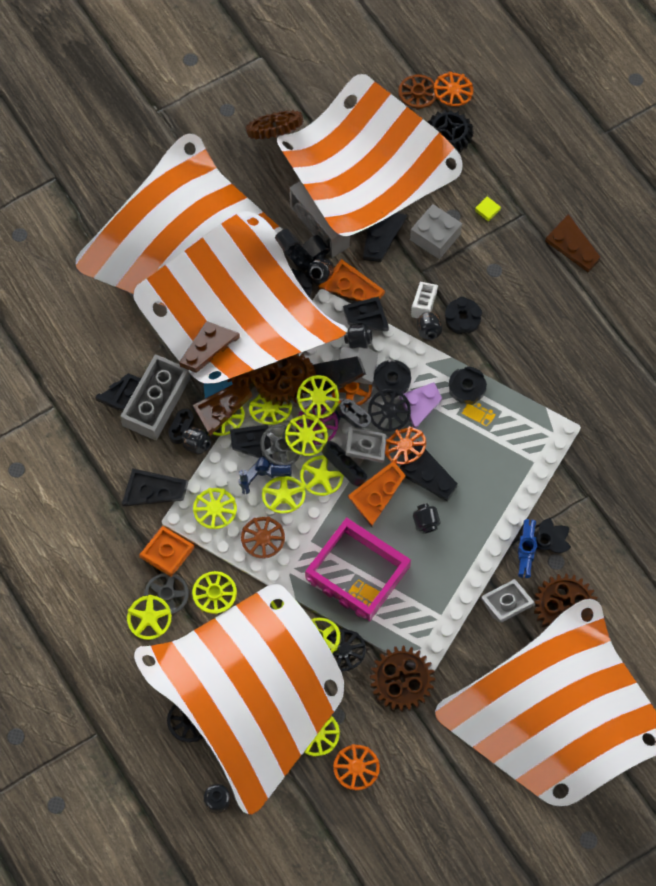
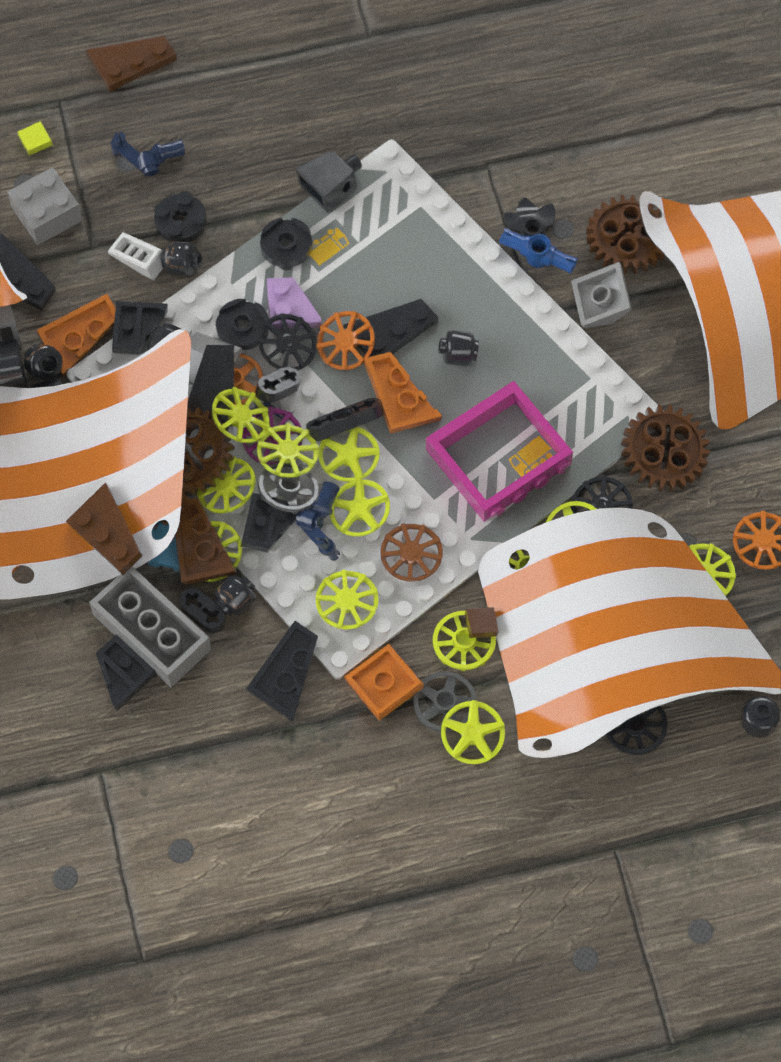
camera: 70 degrees left, 0 degrees up
(227, 597) = (481, 622): none -> reddish brown tile
(365, 444) = (326, 386): light grey slope -> none
(497, 281) = (150, 160): none -> dark blue pin
(527, 395) = (329, 179): none -> black torso

